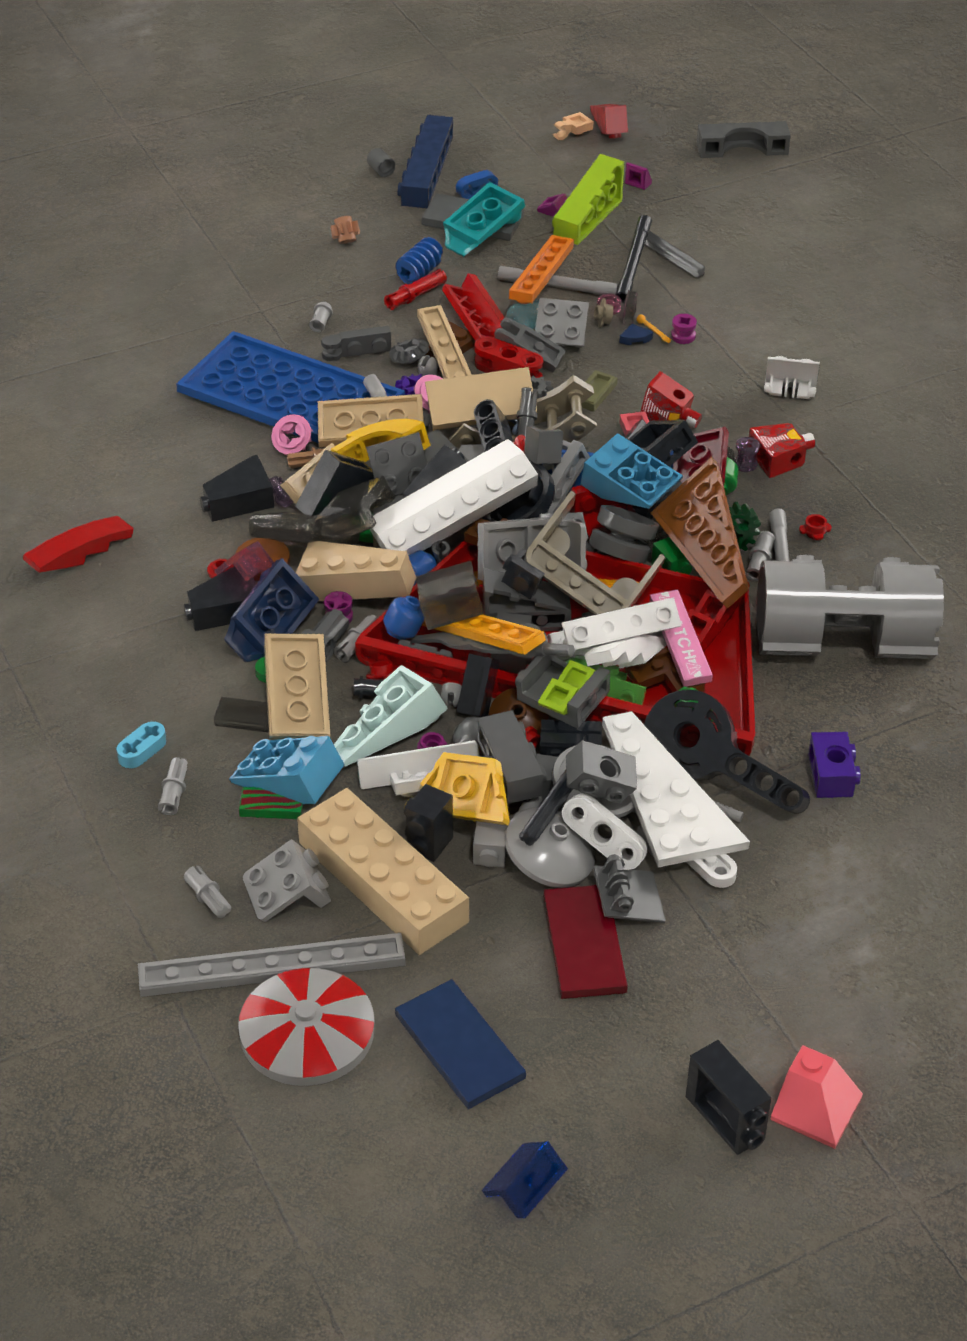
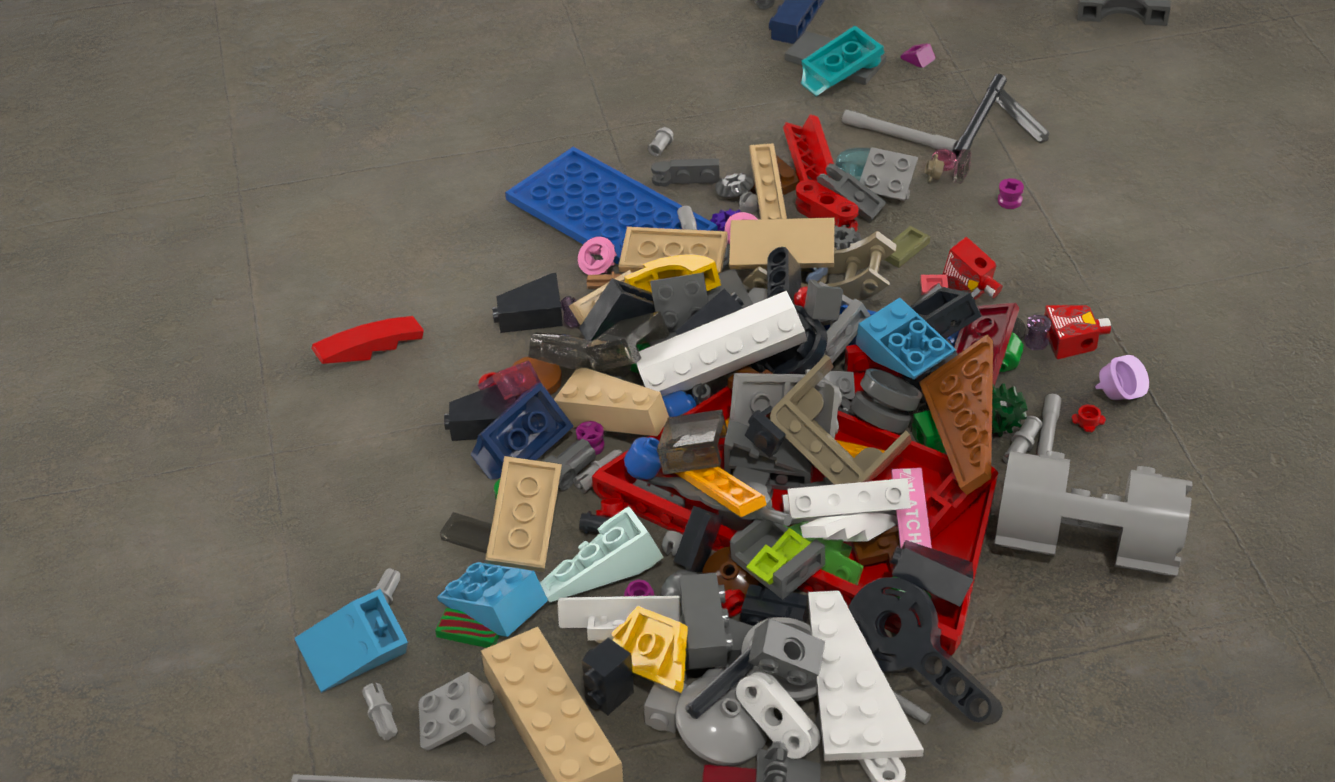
camera: 15 degrees right, 0 degrees up
(141, 744) = (365, 549): medium azure beam -> none
(161, 829) = (352, 641): none -> dark azure slope
(345, 229) = (707, 58): nougat gear -> none
(408, 292) = (750, 127): red pin -> none
(419, 260) = (769, 96): blue piece -> none
(476, 183) = (845, 23): blue beam -> none
(527, 410) = (821, 265): dark grey pin -> none
(541, 269) = (882, 118): orange plate -> none
(591, 199) = (952, 53): lime wedge -> none
(635, 334) = (961, 193): dark blue tile -> none
(637, 176) = (1007, 33): magenta slope -> none
(641, 319) = (971, 178): light orange hinge -> none
(717, 680) = (933, 571): none -> black slope
(791, 373) = (1104, 253): white hinge -> none
(833, 764) = (1036, 678): dark purple brick -> none
(839, 487) = (1124, 378): none -> lavender piece

